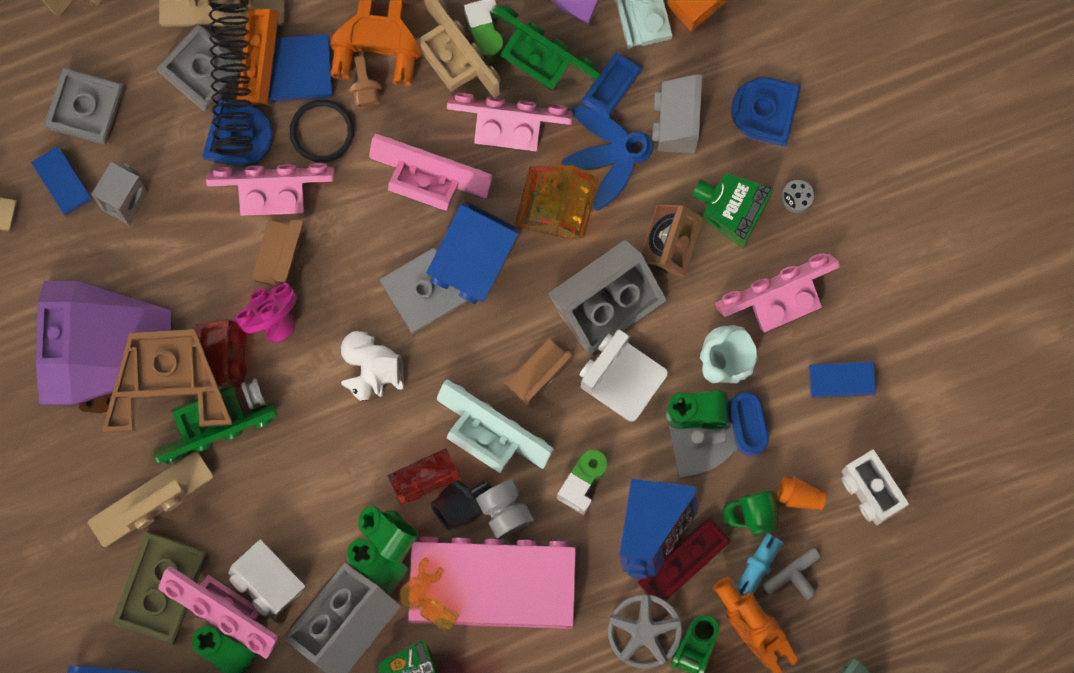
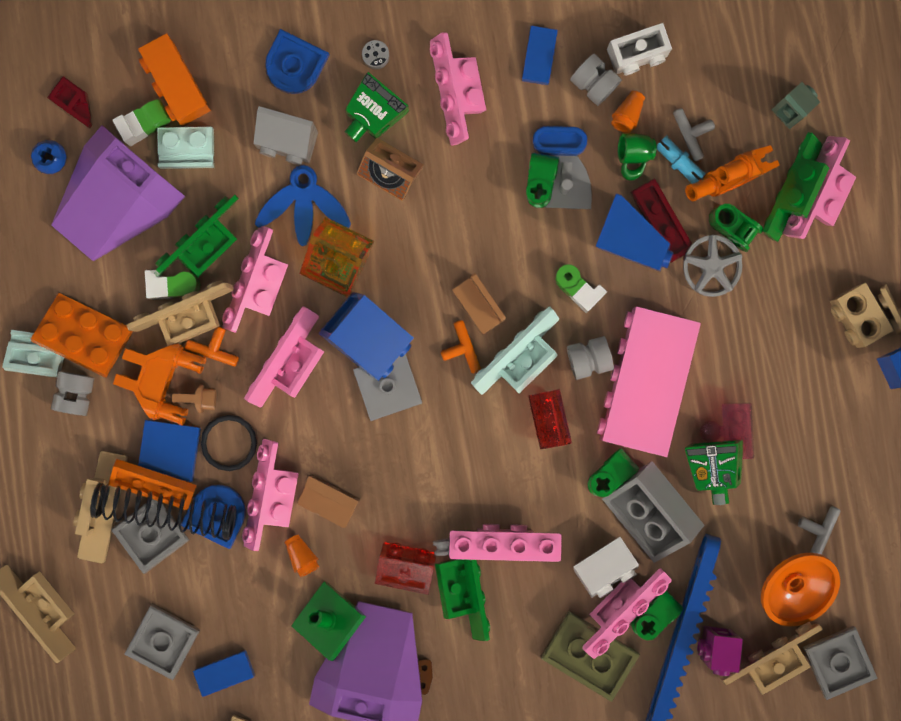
camera: 70 degrees left, 10 degrees up
(120, 192) = (247, 626): light grey brick -> none
(142, 281) = (328, 621): none -> green tile
(150, 499) = (515, 649): tan bracket -> none
(164, 367) = (410, 616): medium nougat wing -> none
(209, 236) = (301, 556): none -> orange cone
(269, 313) = (380, 520): dark pink plate -> none
(269, 457) = (505, 544): none -> bright pink bracket
(377, 364) = (442, 437): white animal -> none
(387, 532) = (590, 459): green piece -> none
(414, 597) = (651, 448): clear yellow bar -> none
(422, 91) = (212, 351): none -> orange piece
(458, 504) = (576, 394): black piece -> none
(486, 367) = (465, 347): none -> orange piece
(607, 296) = (427, 232): light grey slope -> none
(612, 85) = (245, 187): blue tile -> none
(622, 377) = (499, 235): white bracket -> none
(728, 355) = (501, 143): light aqua hair -> none
(829, 445) = (595, 79): none -> light grey wheel

